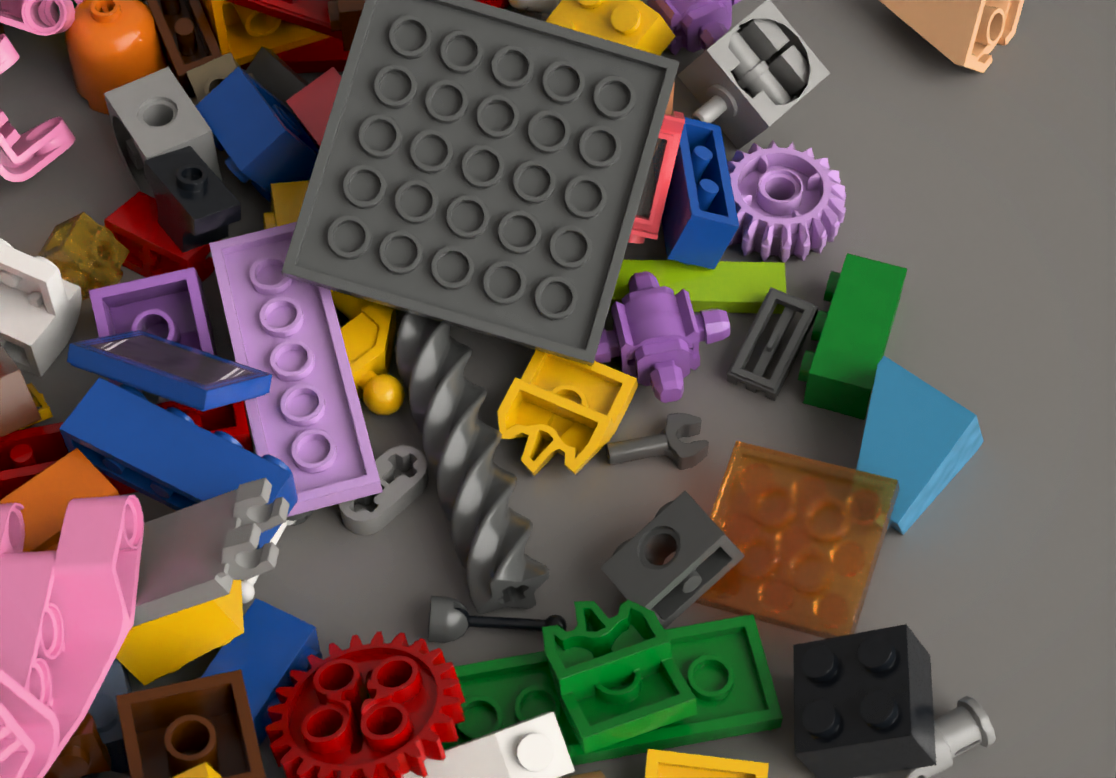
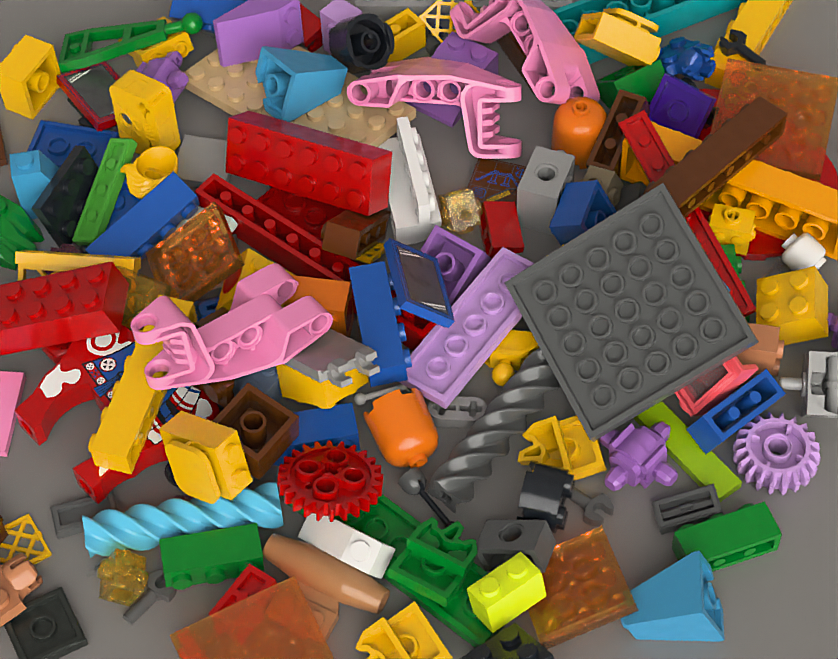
camera: 55 degrees right, 0 degrees up
(86, 183) = (496, 180): none -> reddish brown tile
(190, 199) = (519, 220): black brick -> none
(364, 567) = (403, 428): none -> orange cylinder
(629, 472) = (545, 494): none -> black brick
(745, 619) = (506, 592): none -> neon yellow brick

